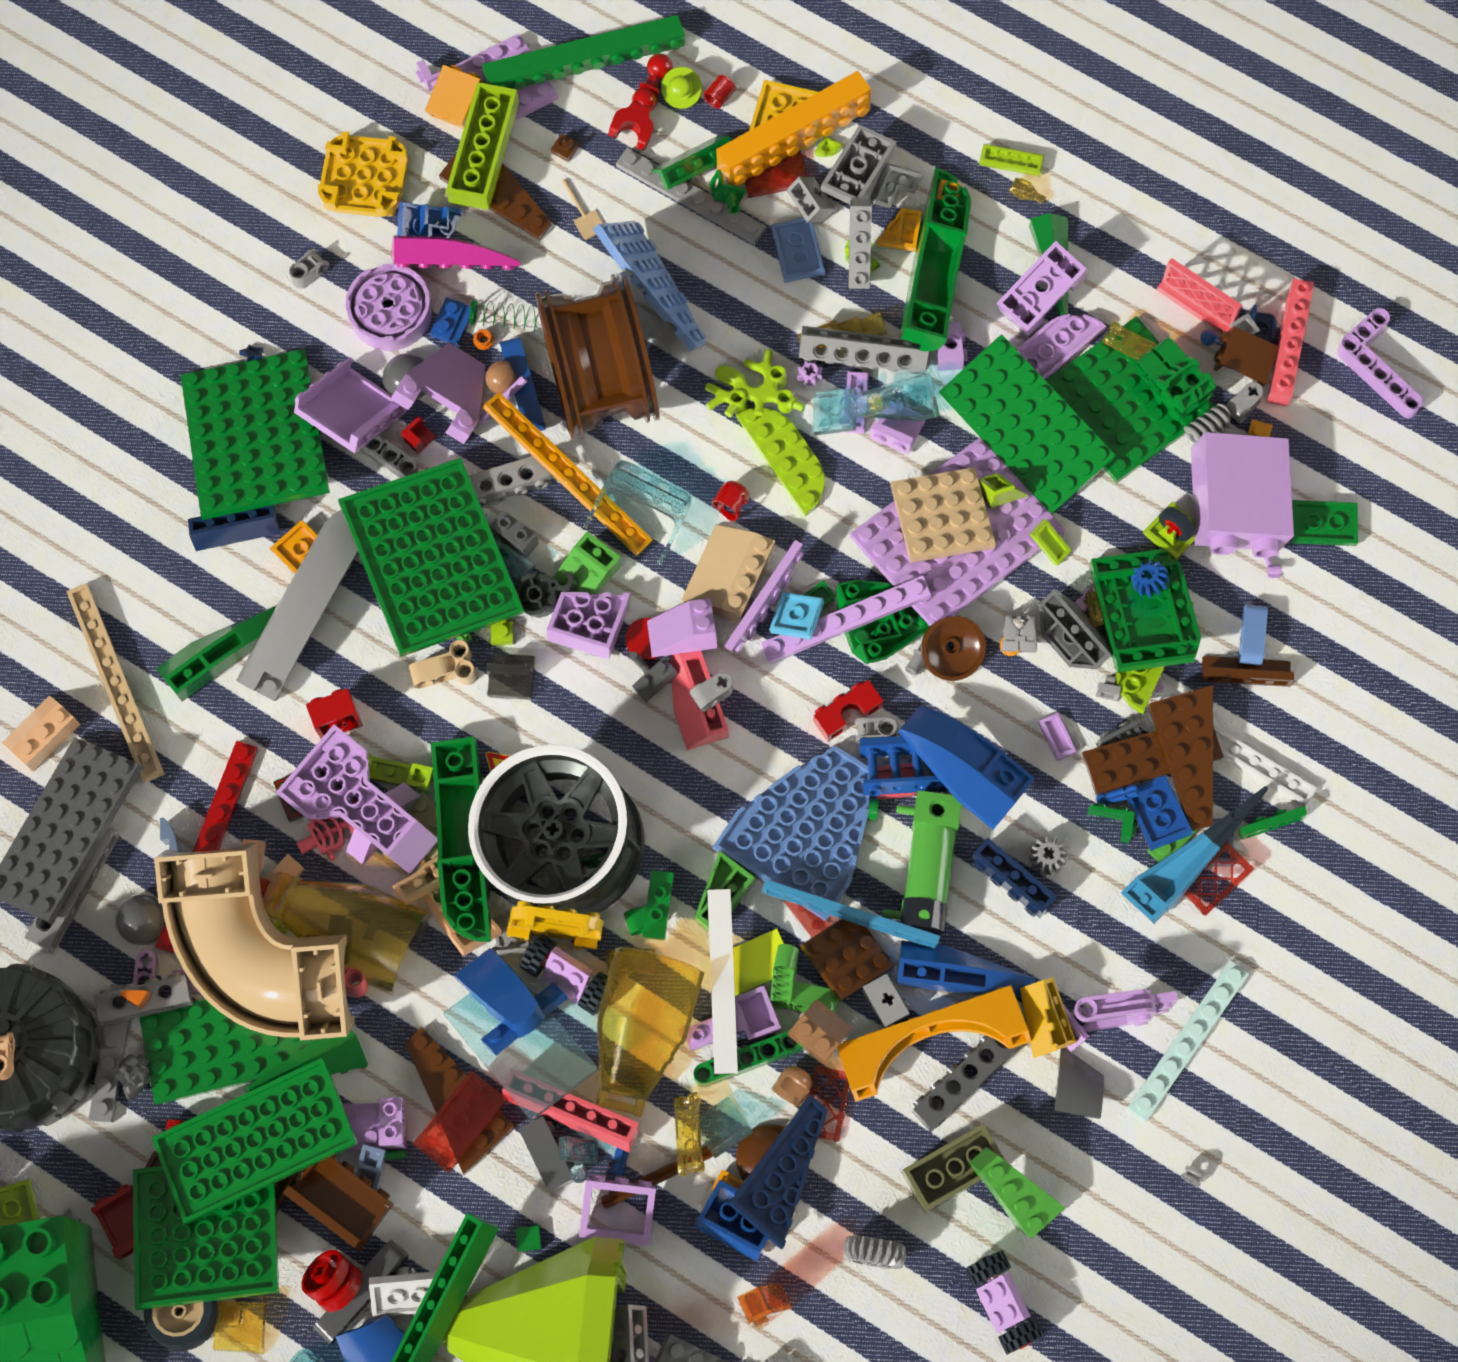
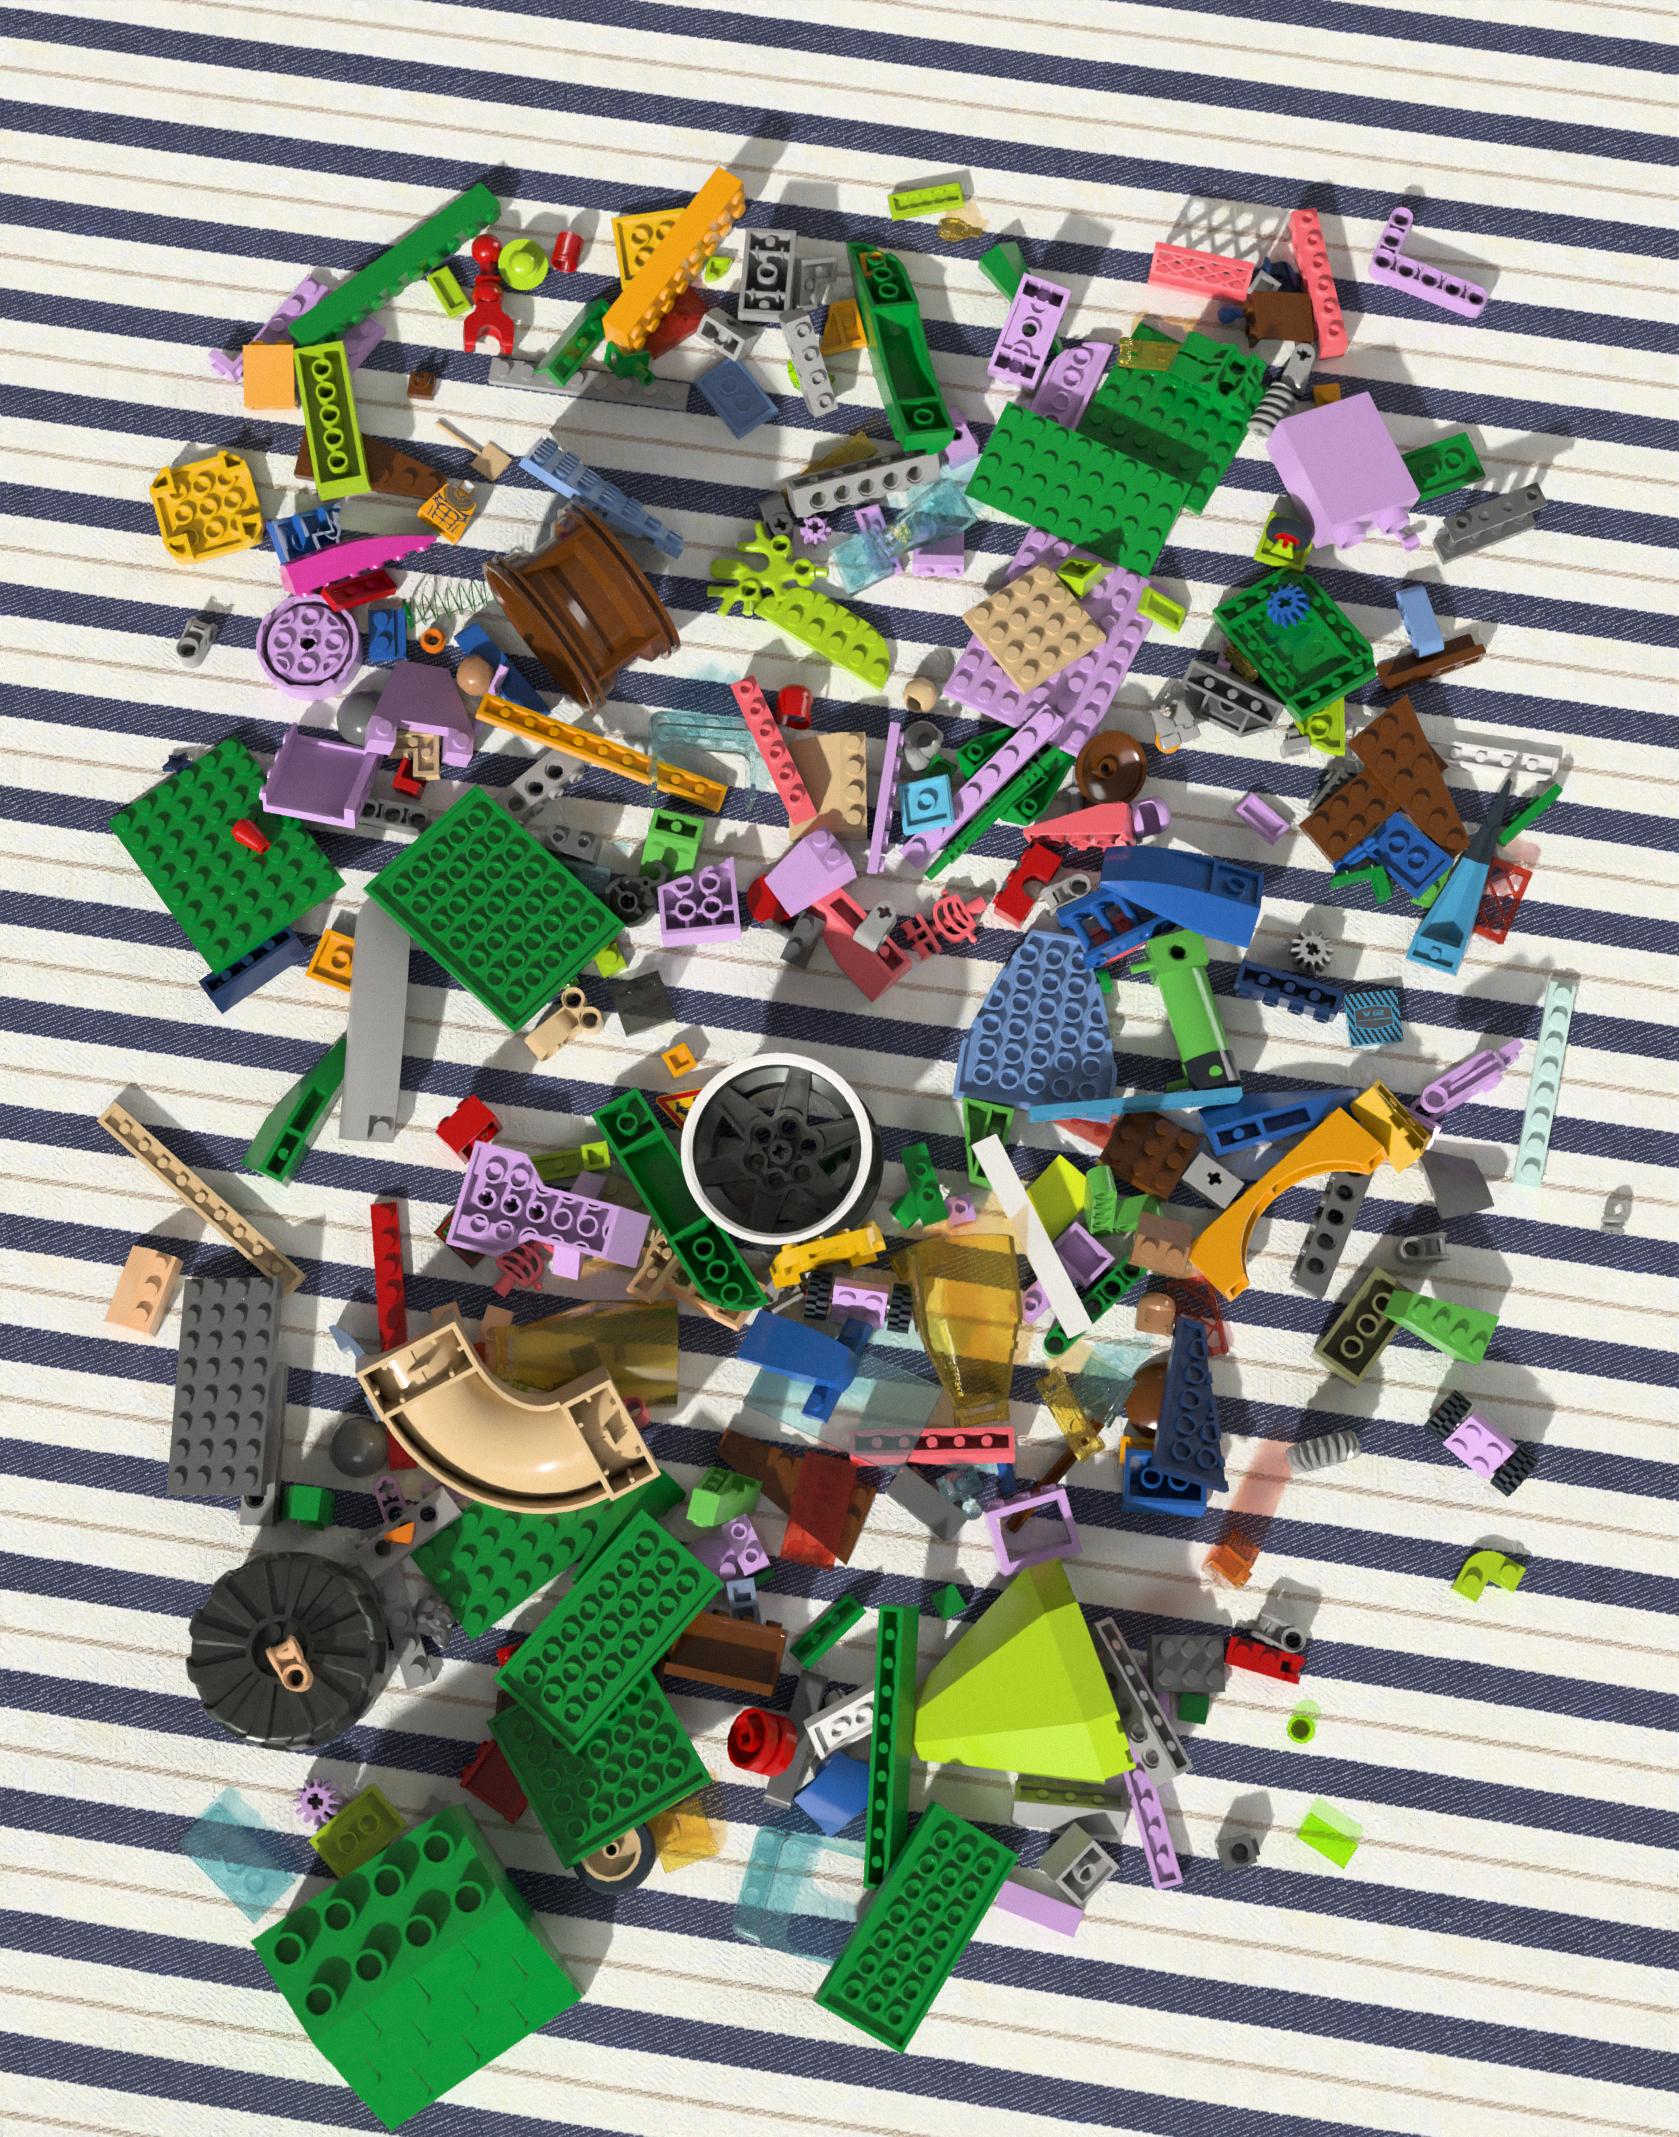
camera: 25 degrees left, 5 degrees up
(81, 948) = (307, 1507): none -> green wedge
(275, 426) = (250, 835): none -> red cone
(390, 1077) = (722, 1497): none -> bright green wedge
(424, 1219) = (827, 1631): none -> green plate
(436, 416) = (423, 749): none -> tan plate
(444, 279) = (359, 590): none -> red plate
(518, 731) = (679, 1060): none -> light orange plate
(540, 247) = (449, 510): none -> torso
(617, 87) = (449, 292): none -> lime tile
(677, 938) = (960, 1211): none -> brick
(699, 526) = (774, 750): none -> coral brick
(785, 351) = (776, 516): none -> dark grey piece
(792, 711) = (965, 911): none -> coral torso
(814, 567) = (920, 744): none -> light grey hair
(832, 531) = (920, 695): none -> tan piece
(845, 643) = (992, 813): none -> green axle
(915, 685) = (1094, 827): none -> coral wedge
(967, 697) = (1150, 816): none -> lavender helmet
(1032, 1128) = (1428, 1248): none -> light grey piece
(1074, 929) = (1373, 1018): none -> tile
(1342, 580) = (1489, 523): none -> dark grey fence

